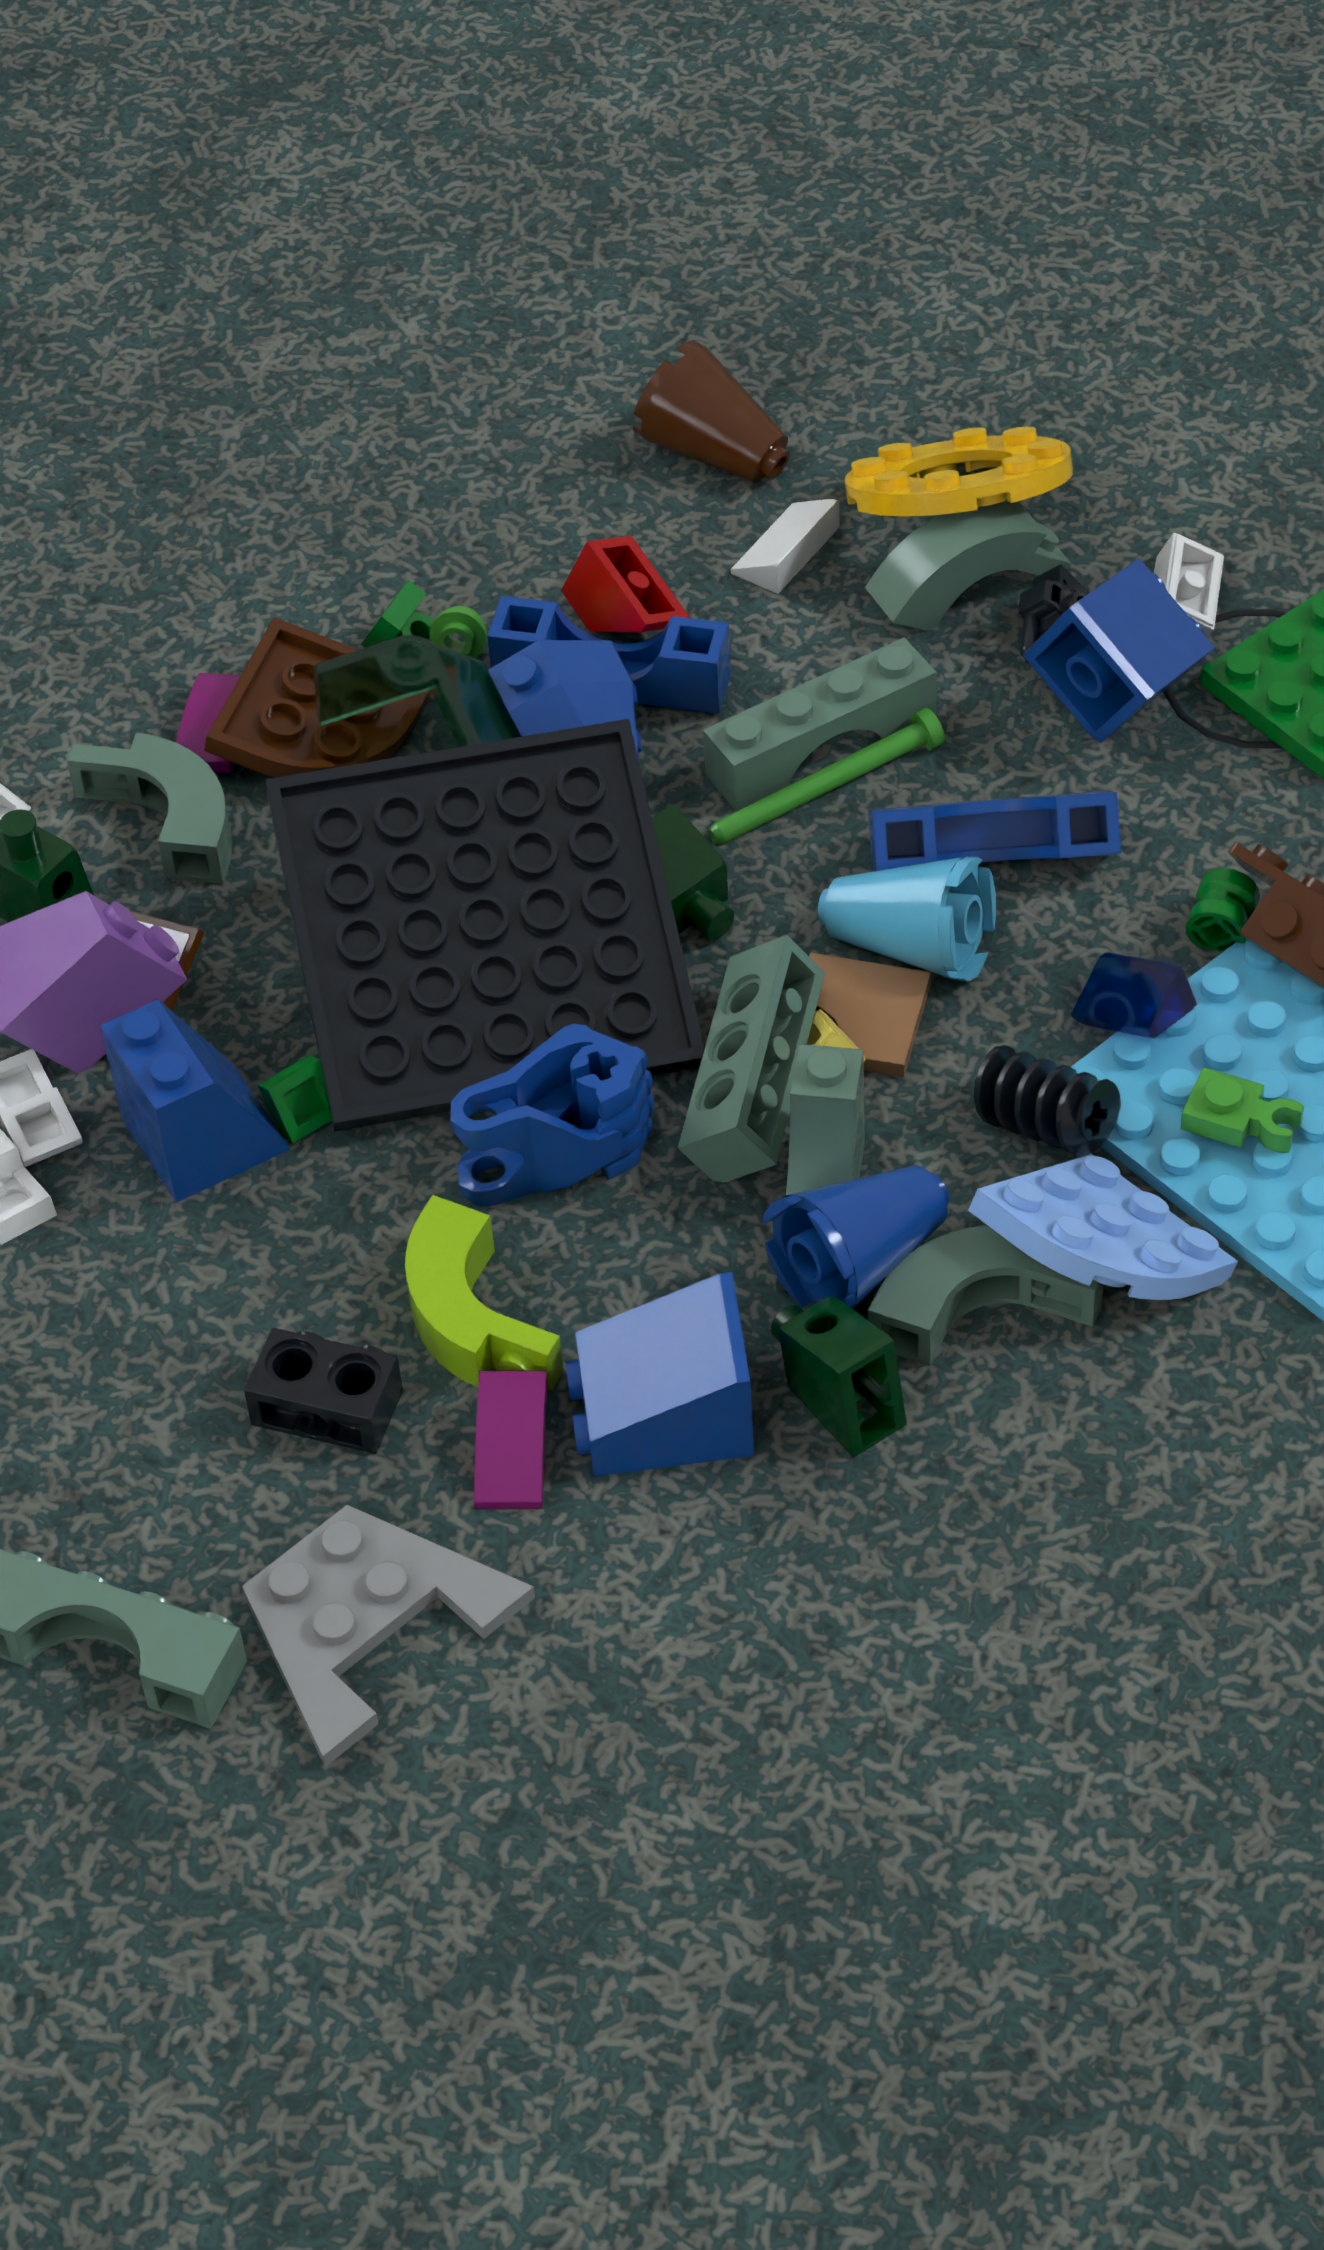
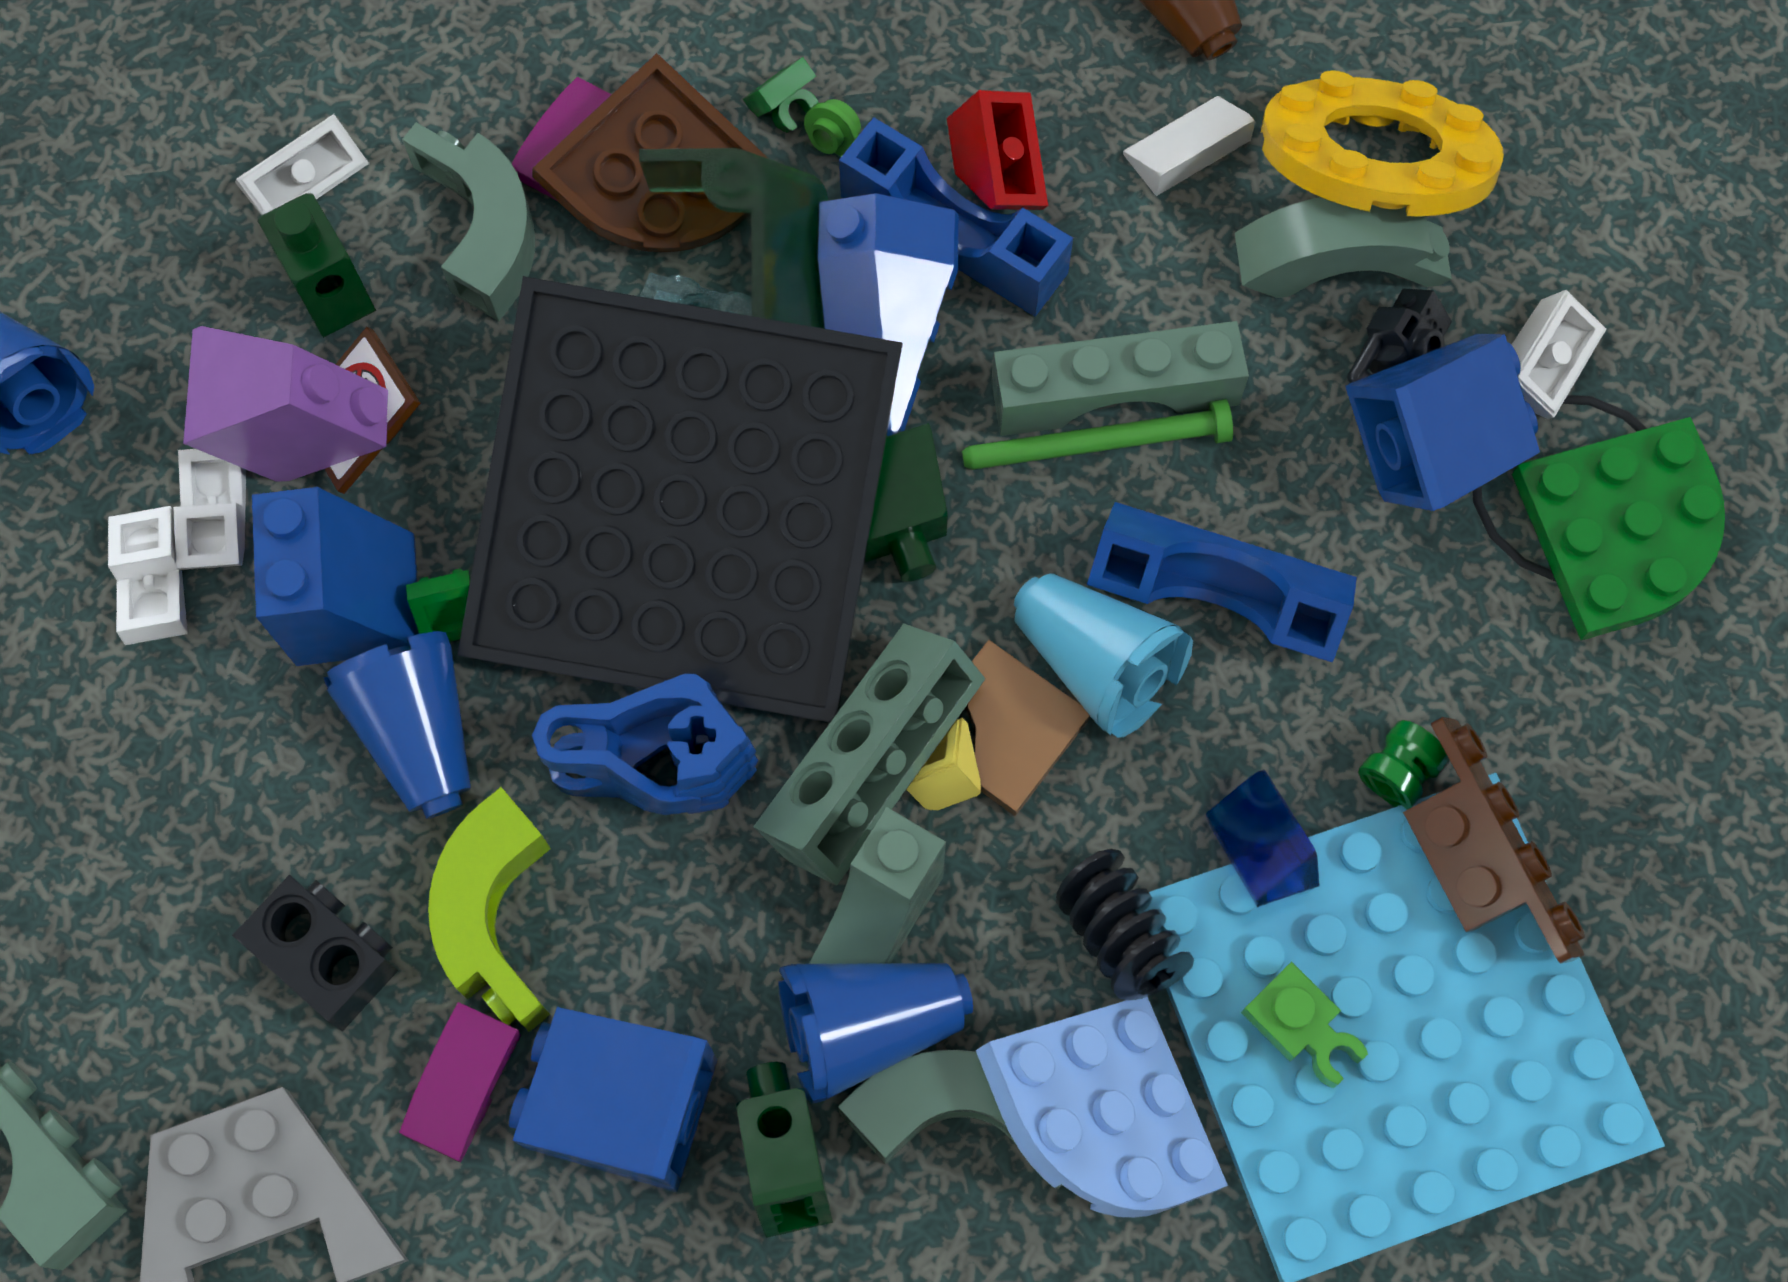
camera: 20 degrees right, 20 degrees up
(313, 1180) = (408, 719): none -> blue cone

